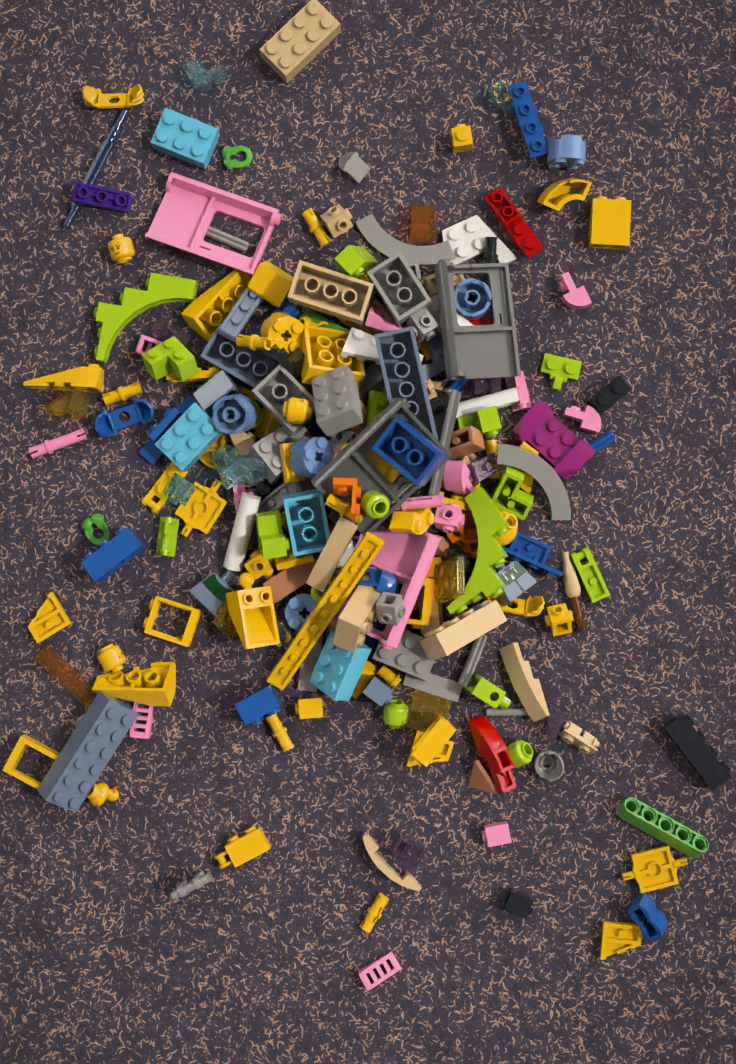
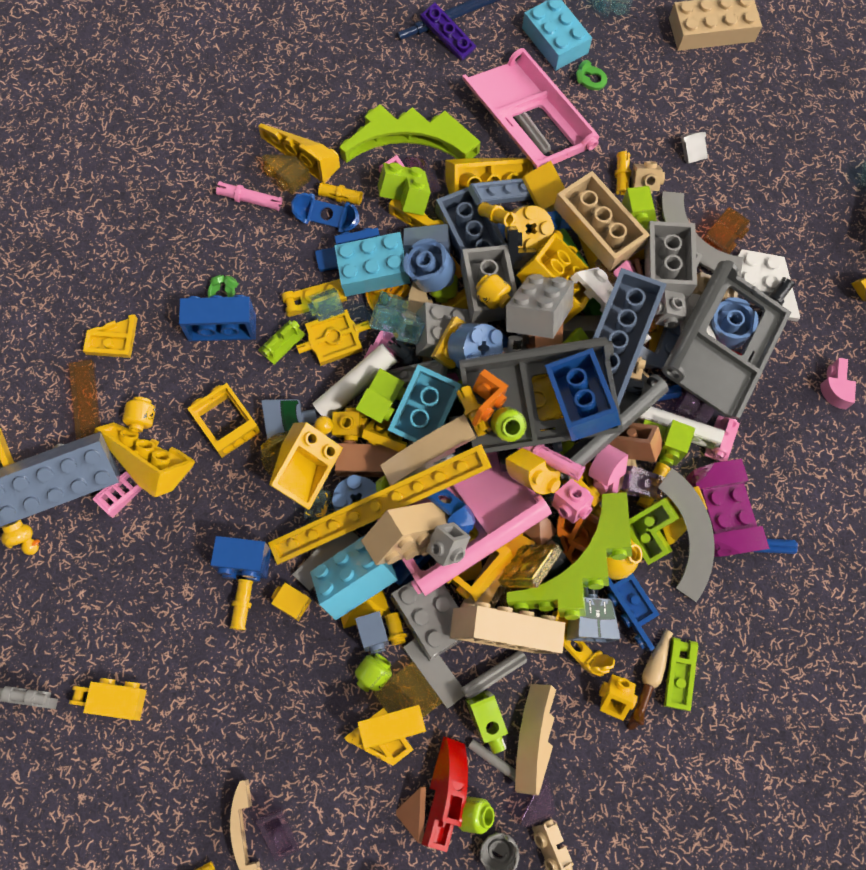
camera: 30 degrees right, 15 degrees down
(121, 248) = (433, 79): yellow head -> none
(461, 138) = (812, 184): yellow brick -> none
(513, 224) = (815, 285): red slope -> none
(560, 369) = (779, 447): lime hinge -> none
(589, 418) = (780, 513): bright pink brick -> none
(609, 395) = (816, 504): black brick -> none

